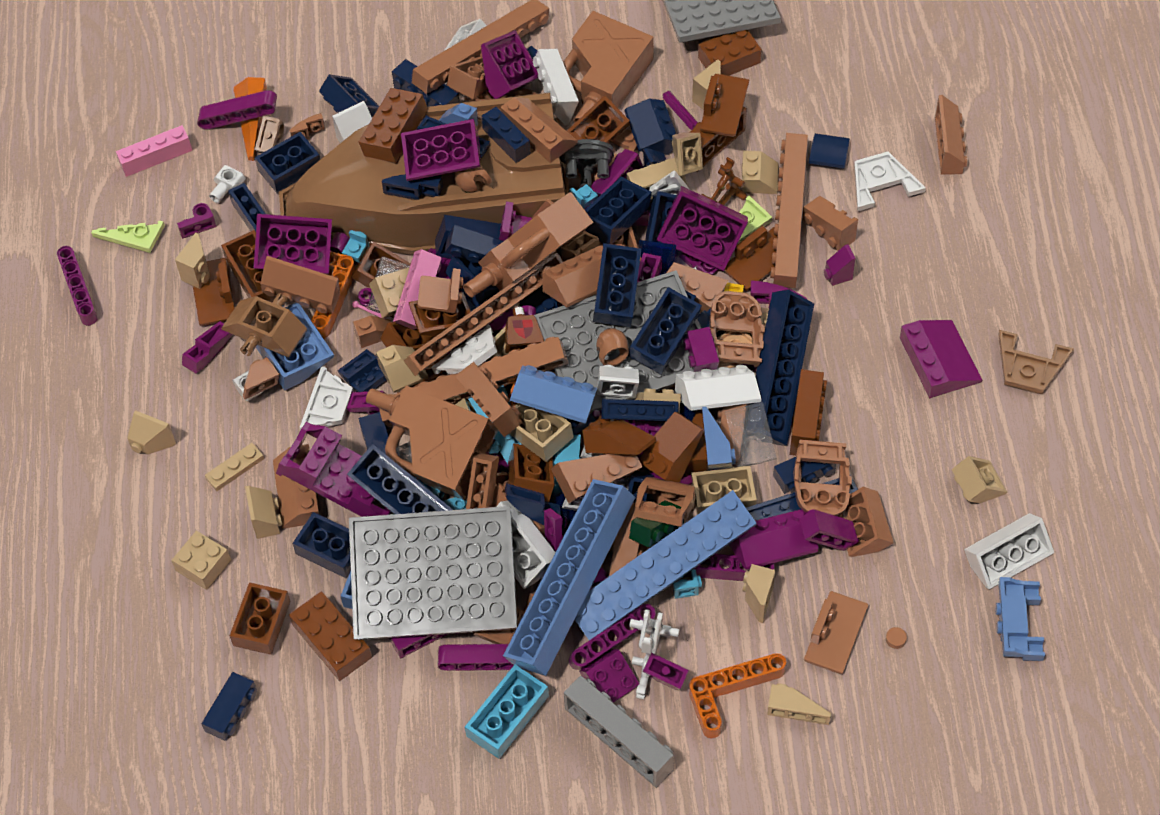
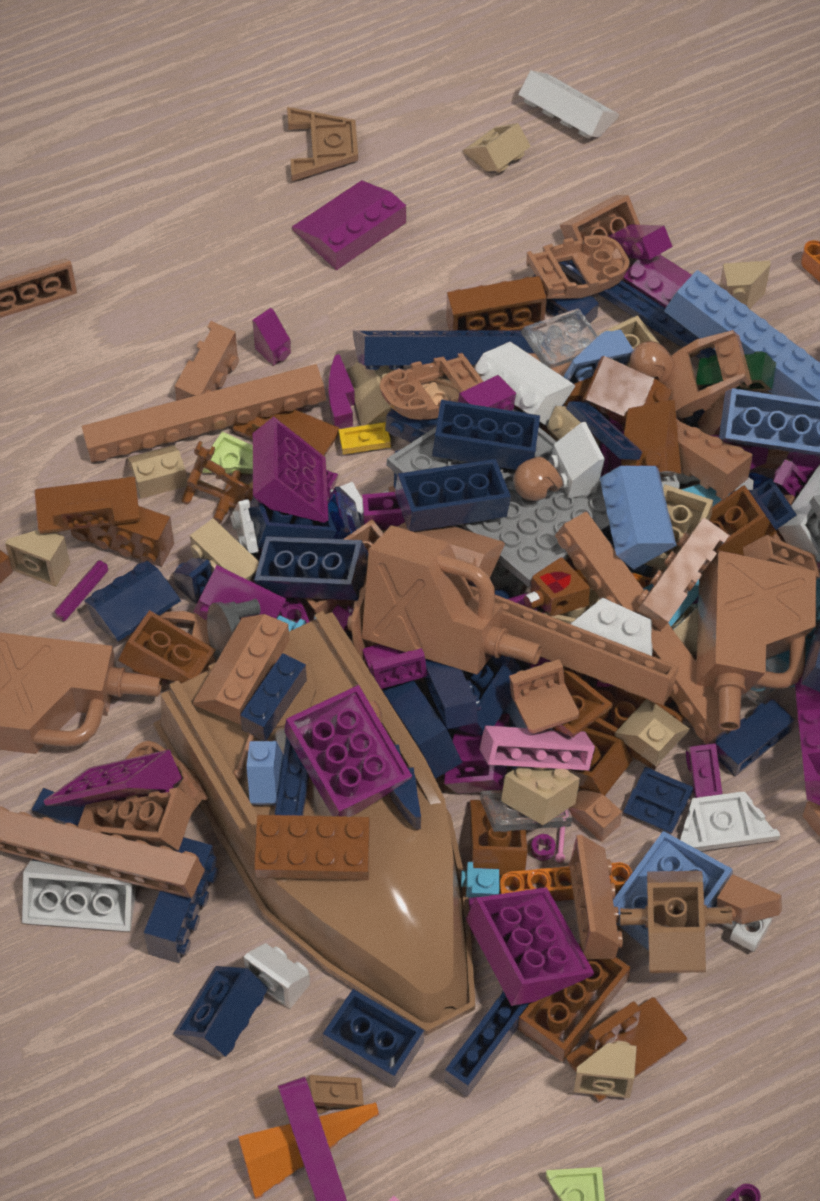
camera: 115 degrees left, 0 degrees up
(202, 221) = (527, 1120): magenta plate -> none
(205, 348) = (717, 1010): magenta slope -> none
(226, 179) = (446, 1118): white piece -> none
(309, 125) = (302, 1050): nougat slope -> none
(556, 82) = (106, 730): white slope -> none
(687, 152) = (182, 522): tan slope -> none
(694, 472) = (652, 360): none -> nougat helmet
(700, 284) = (368, 465): nougat wedge -> none
(829, 150) = (87, 405): dark blue slope -> none
(835, 632) = (742, 220): nougat bracket -> none
(881, 172) = (107, 348): white wing -> none
(896, 637) = (719, 171): nougat tile -> none
(1013, 621) = (647, 78): medium blue bracket -> none

